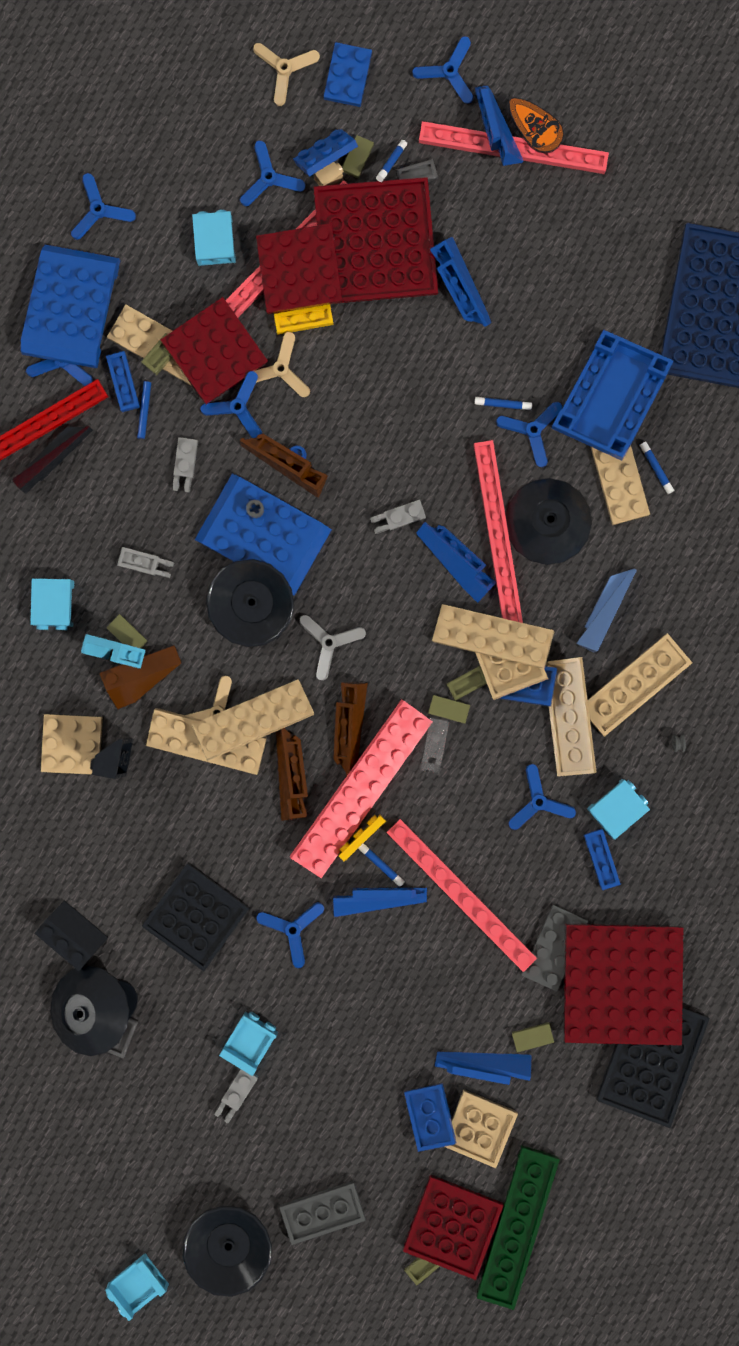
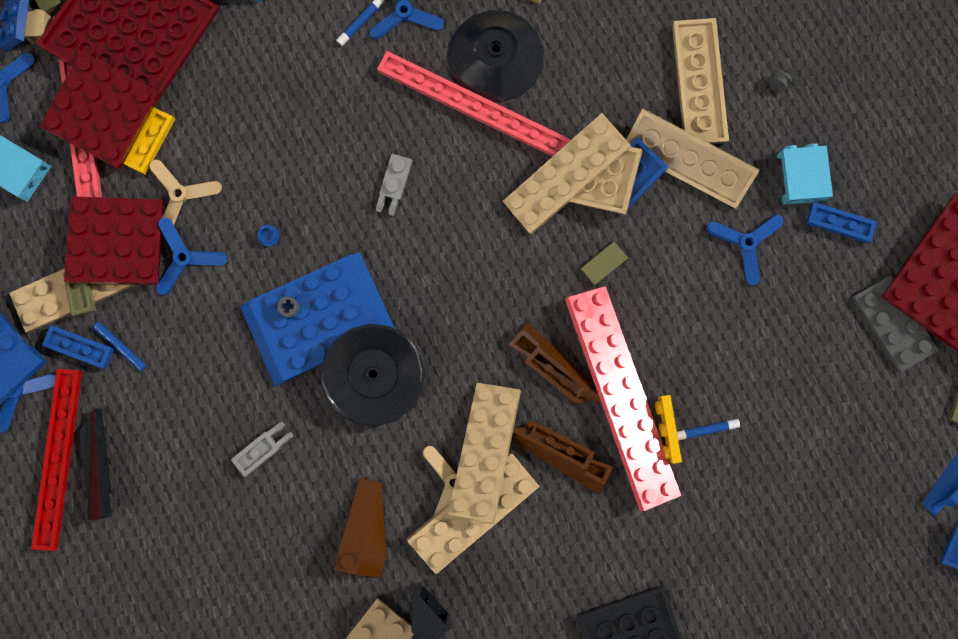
camera: 55 degrees left, 5 degrees down
(51, 603) = (233, 568): medium azure panel -> none
(121, 652) = (330, 532): medium azure panel -> none
(126, 632) = (316, 515): olive tile -> none
(185, 462) = (196, 343): light grey hinge -> none
(286, 462) = (267, 249): reddish brown wedge -> none
(294, 938) = (711, 548): blue piece -> none
(327, 651) = (470, 337): light grey piece -> none
(376, 899) = (736, 456): blue wedge -> none
(434, 745) = (629, 300): clear plate -> none
(457, 560) = (472, 158): blue wedge -> none
(461, 895) = (788, 374): coral plate -> none
(467, 683) = (591, 230): olive tile -> none
(605, 610) = (614, 60): medium blue wedge -> none

